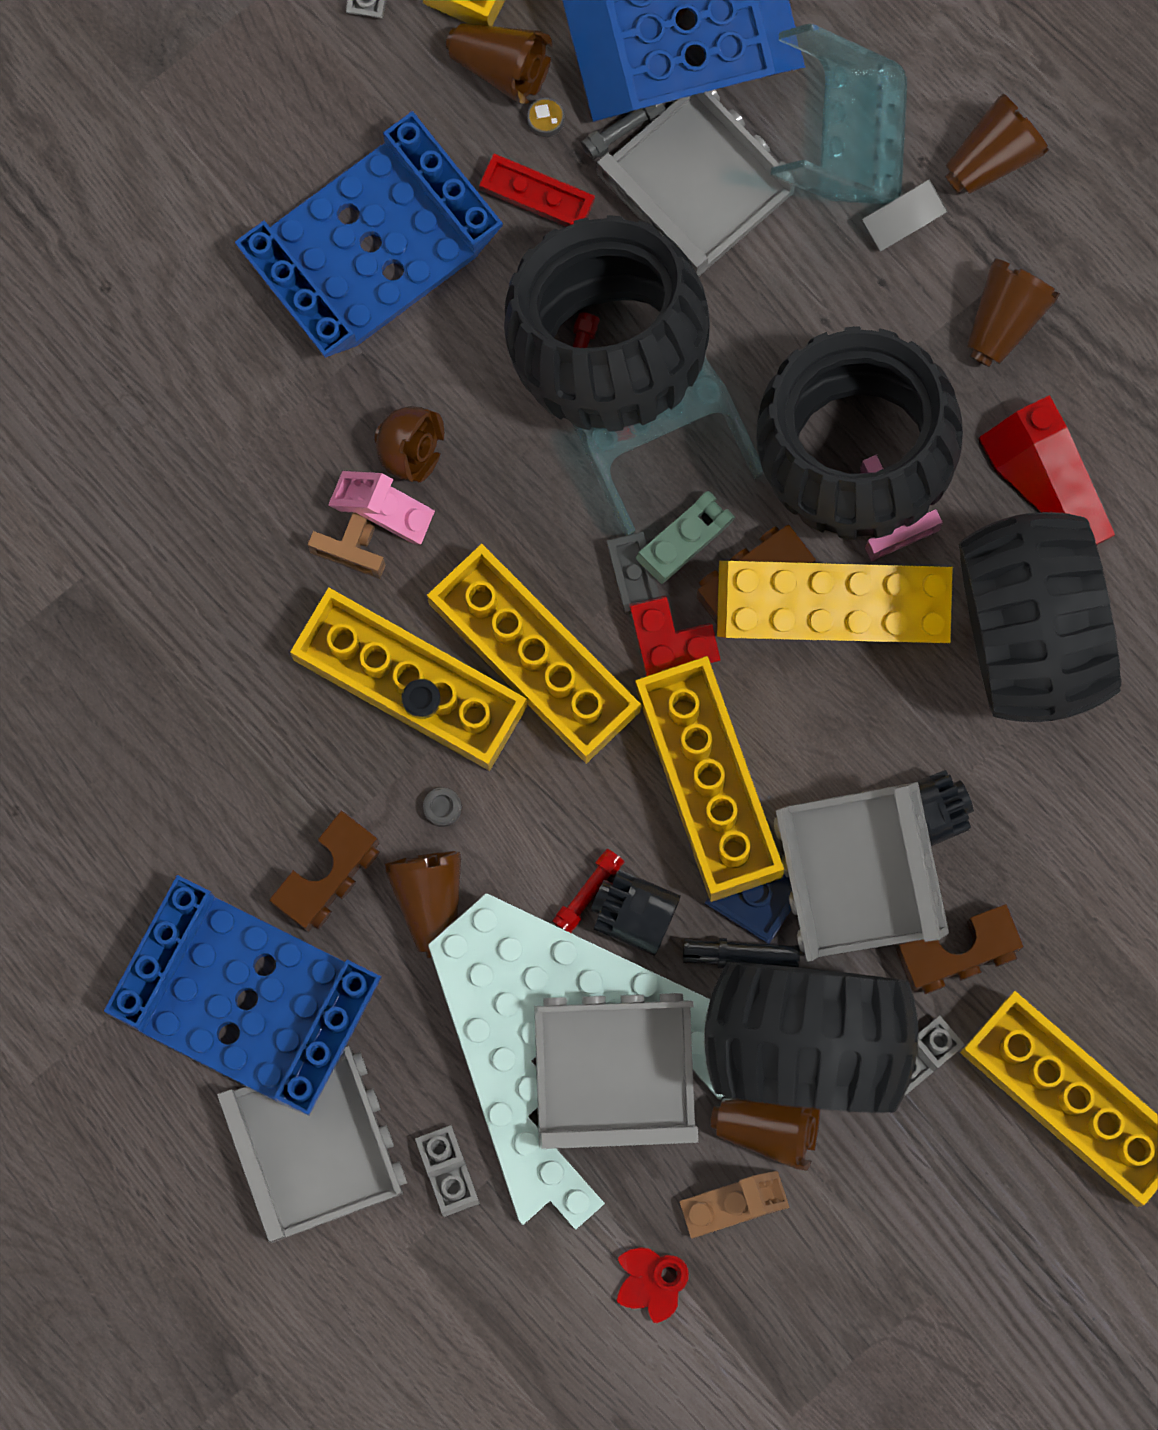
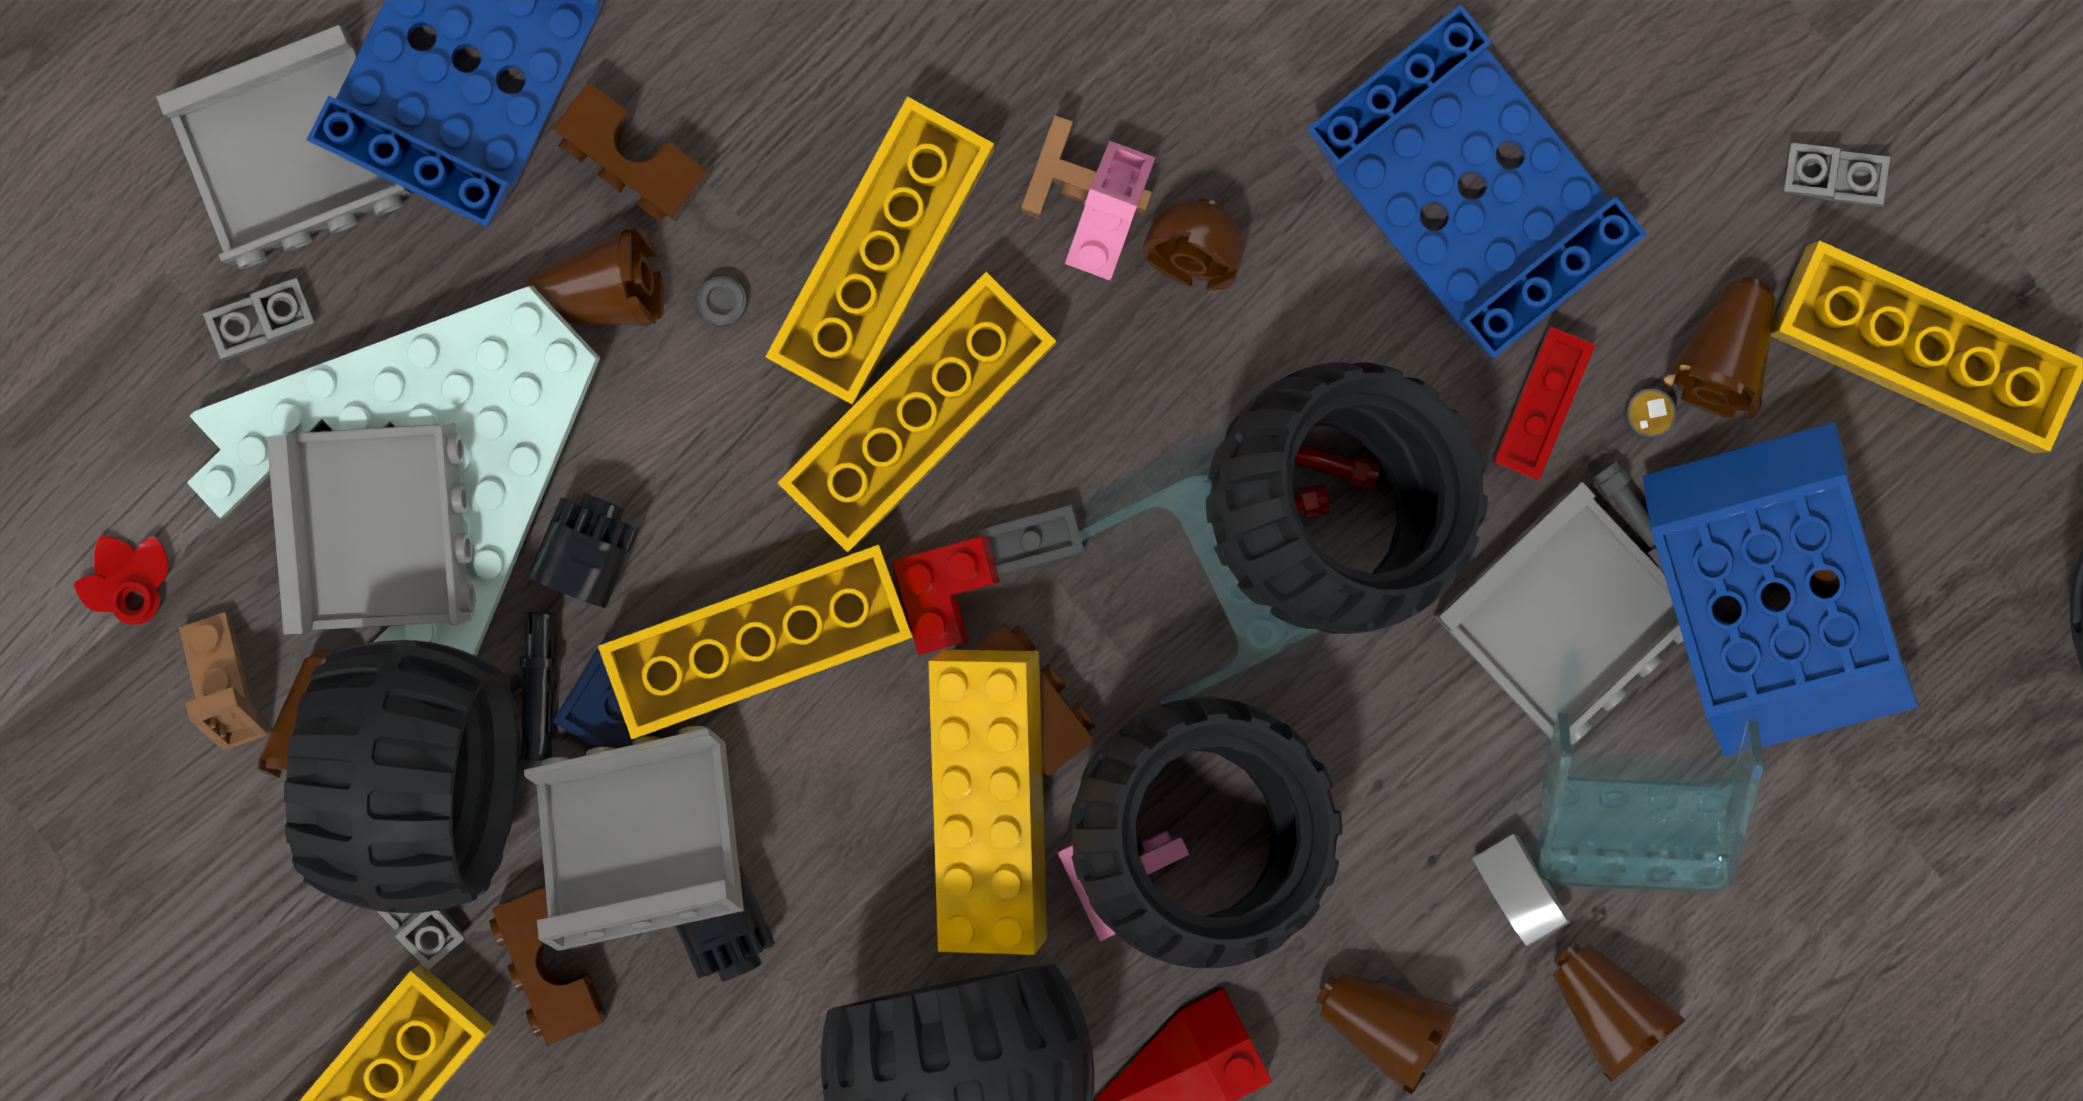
camera: 90 degrees right, 10 degrees up
(421, 699) = (846, 268): black tile -> none
(607, 865) = (581, 465): red bar -> none
(684, 538) = (1076, 605): sand green plate -> none

